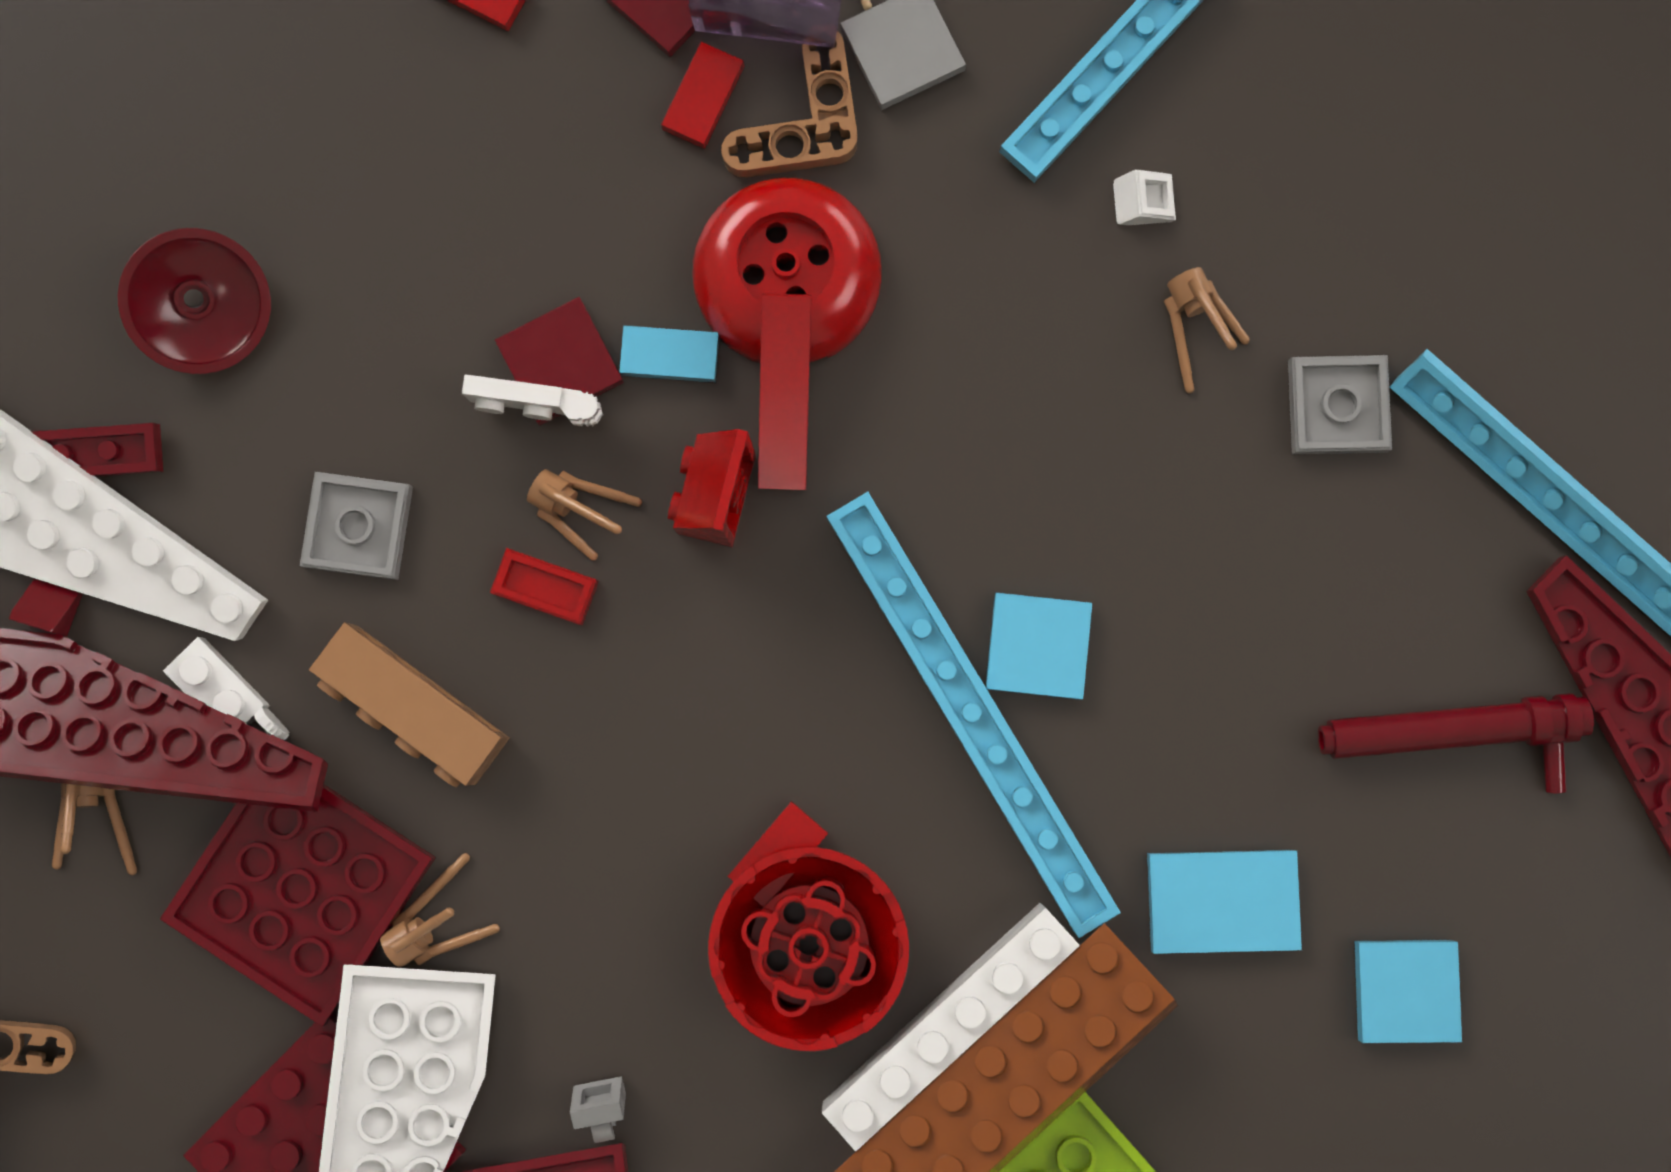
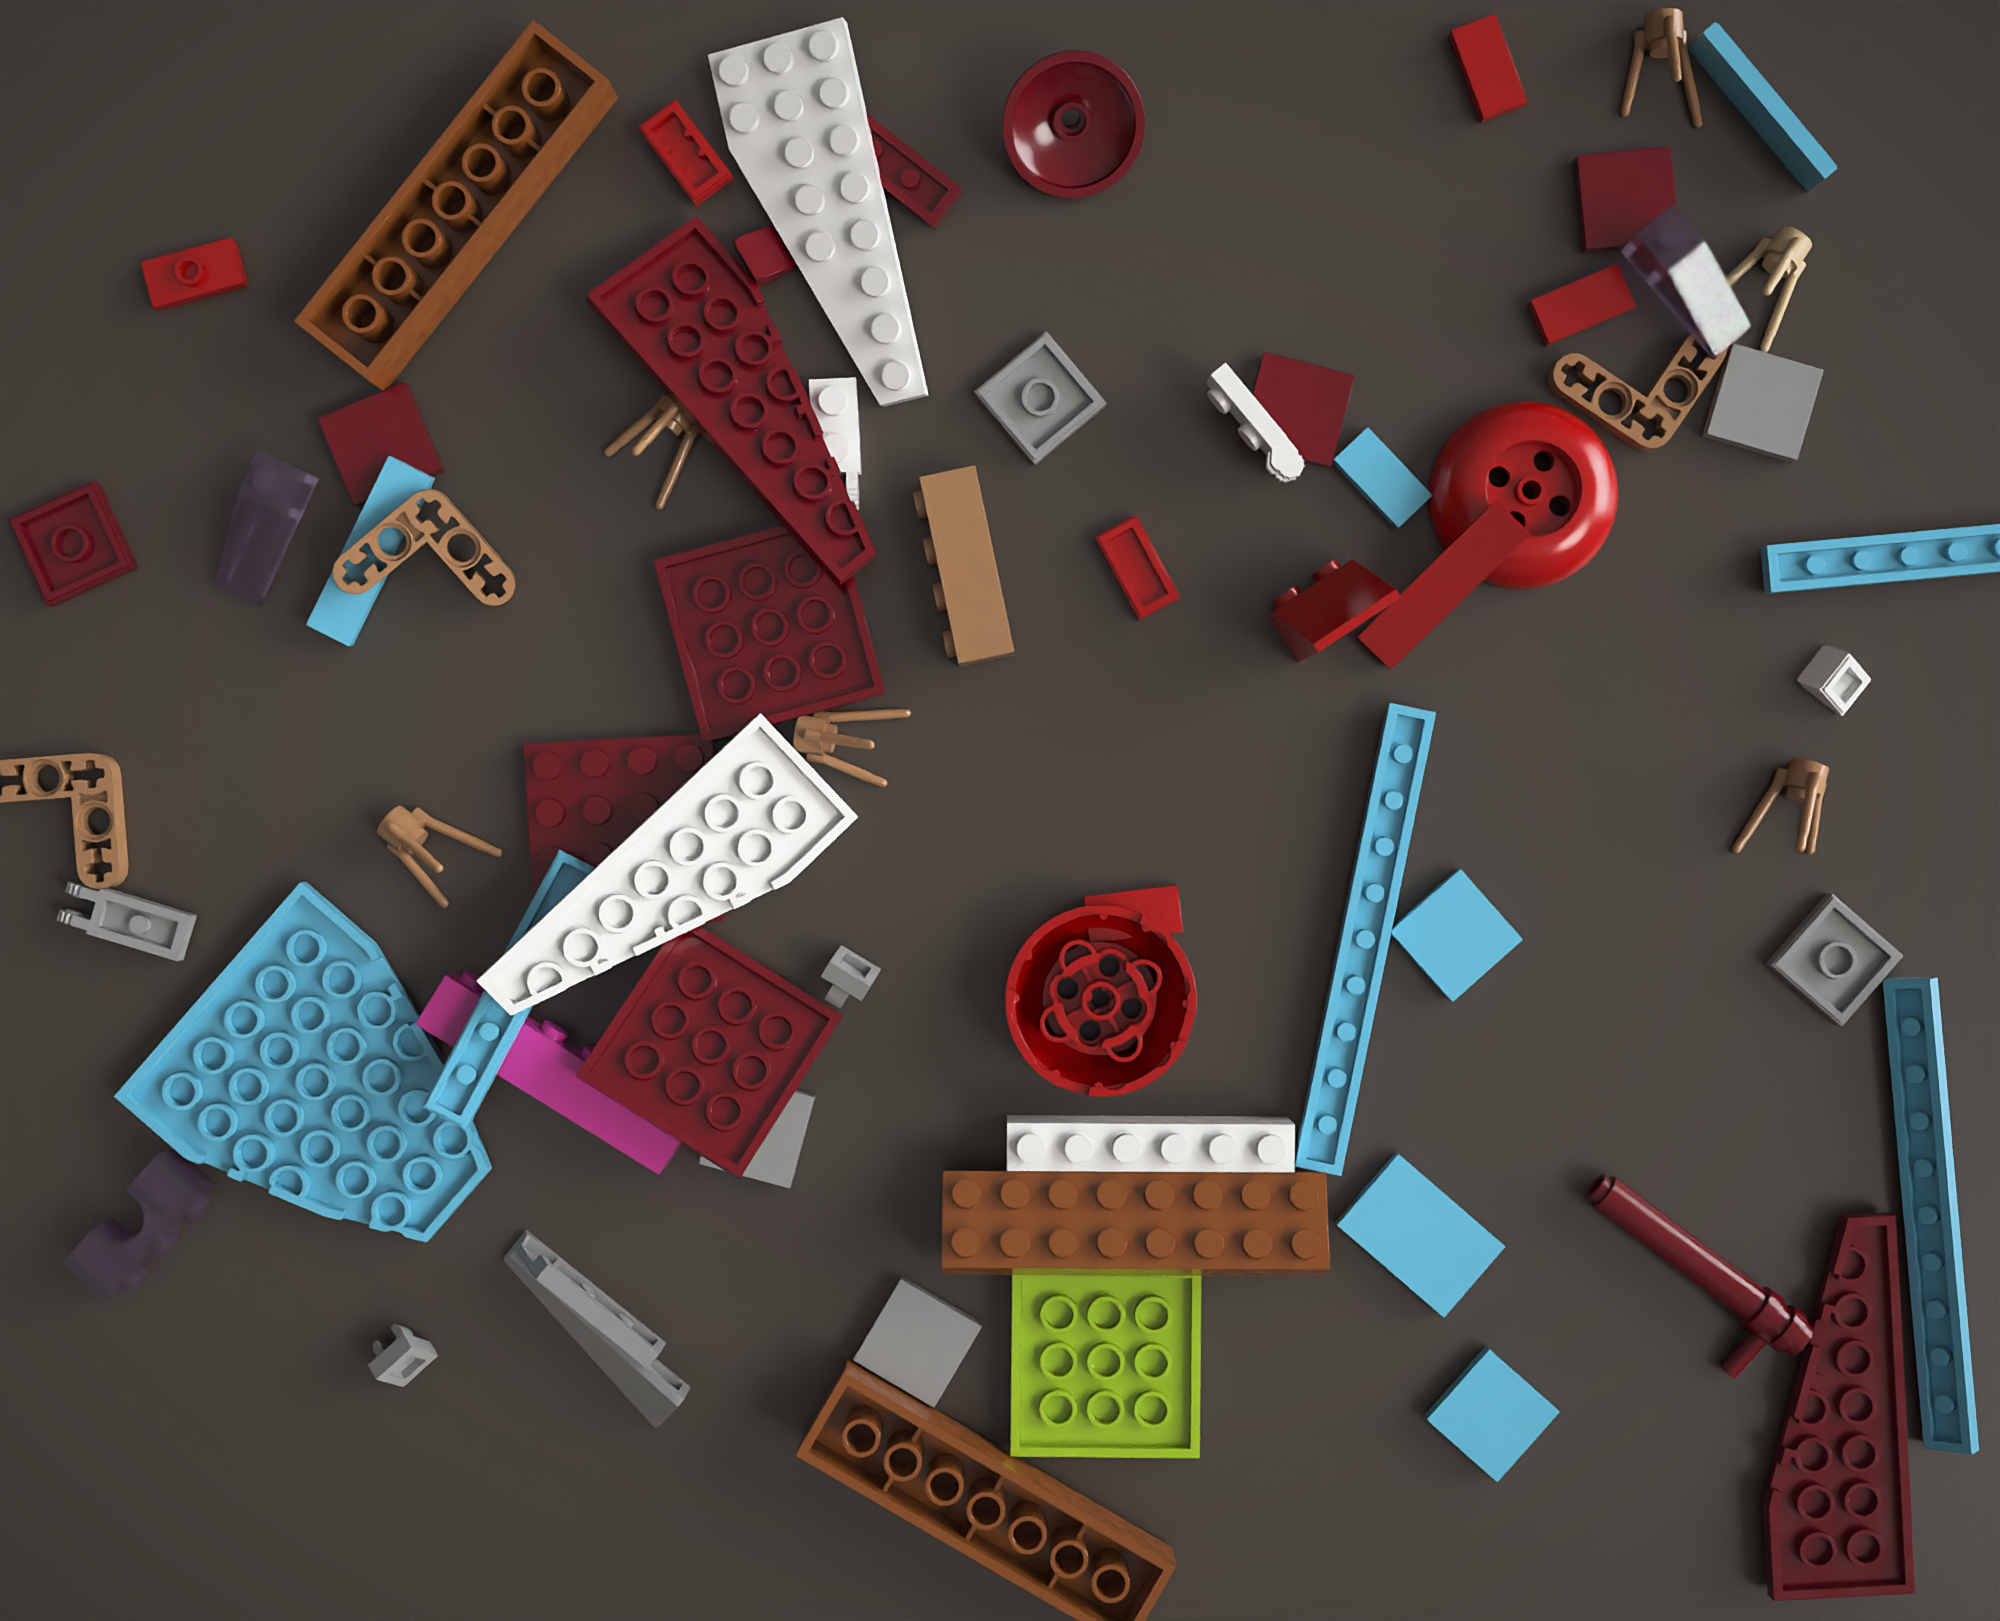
camera: 45 degrees right, 5 degrees up
(556, 496) = (1207, 509): medium nougat plant -> none

